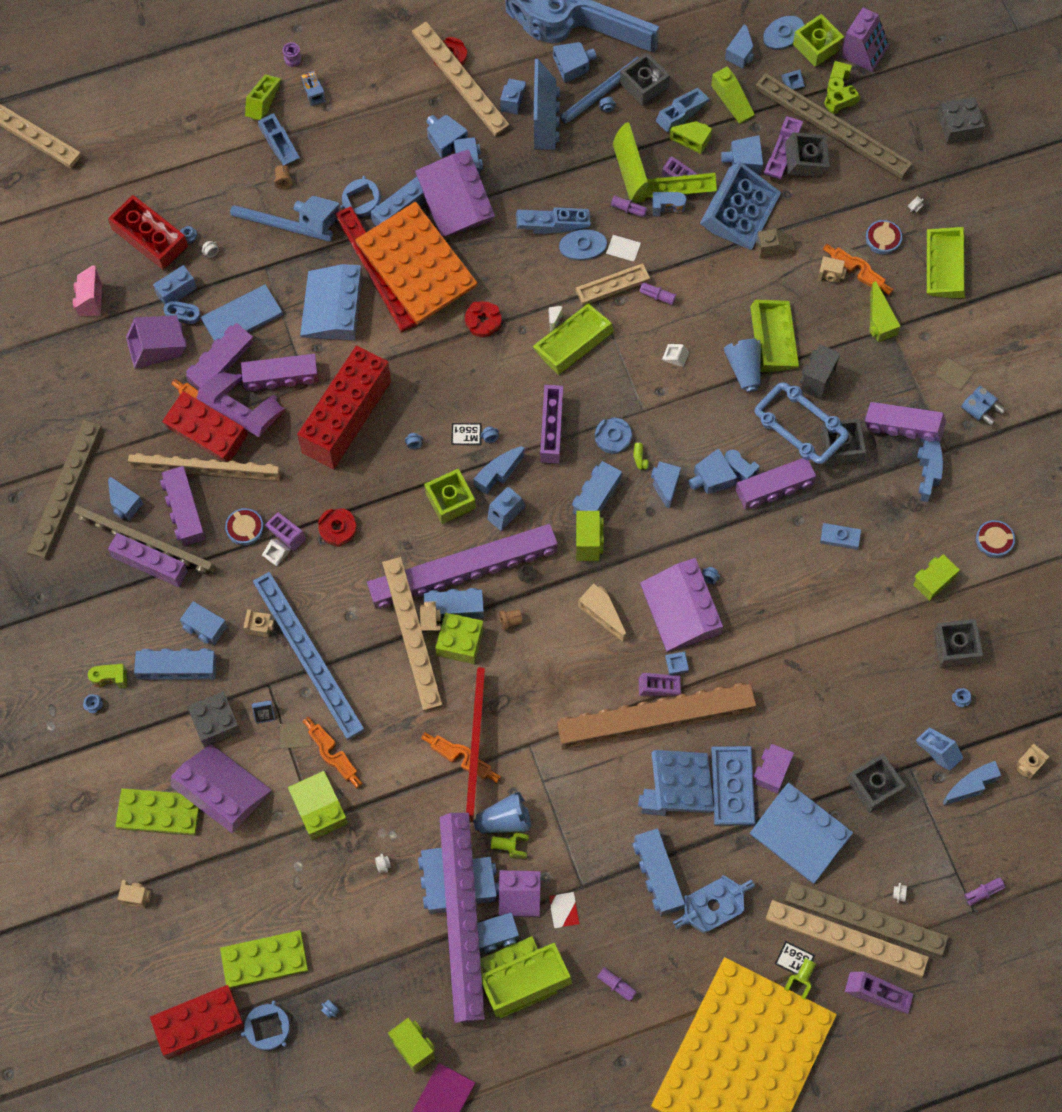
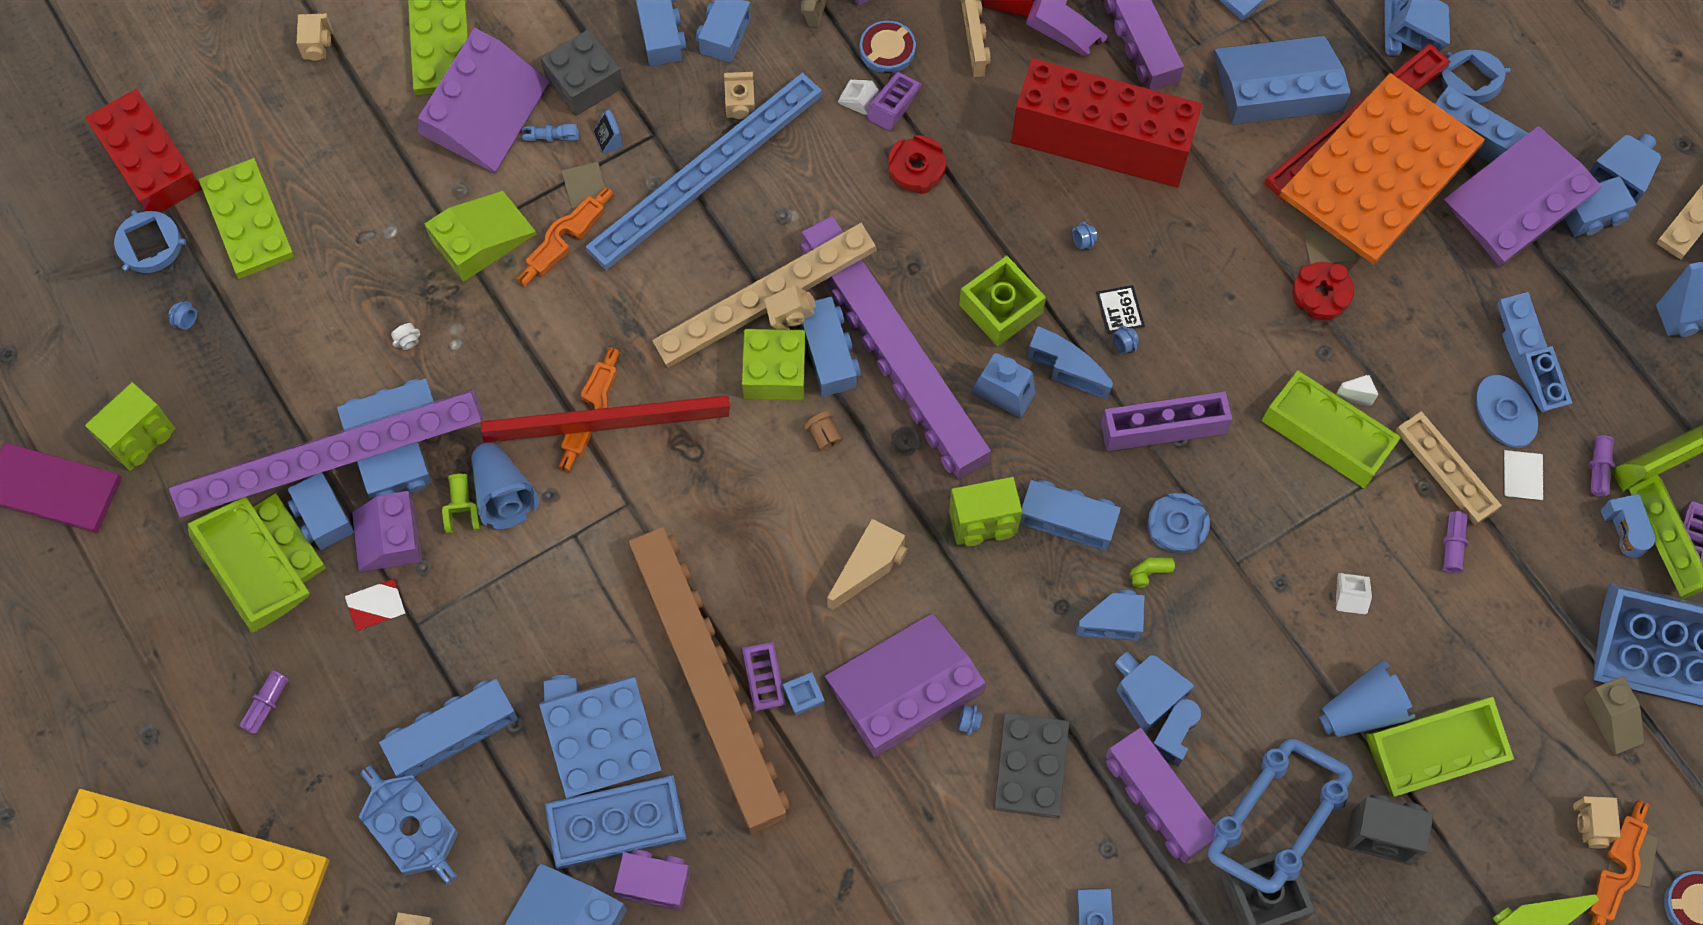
camera: 75 degrees right, 0 degrees up
(252, 748) = (562, 132): none -> medium blue piece
(743, 548) = (1031, 765): none -> dark grey plate

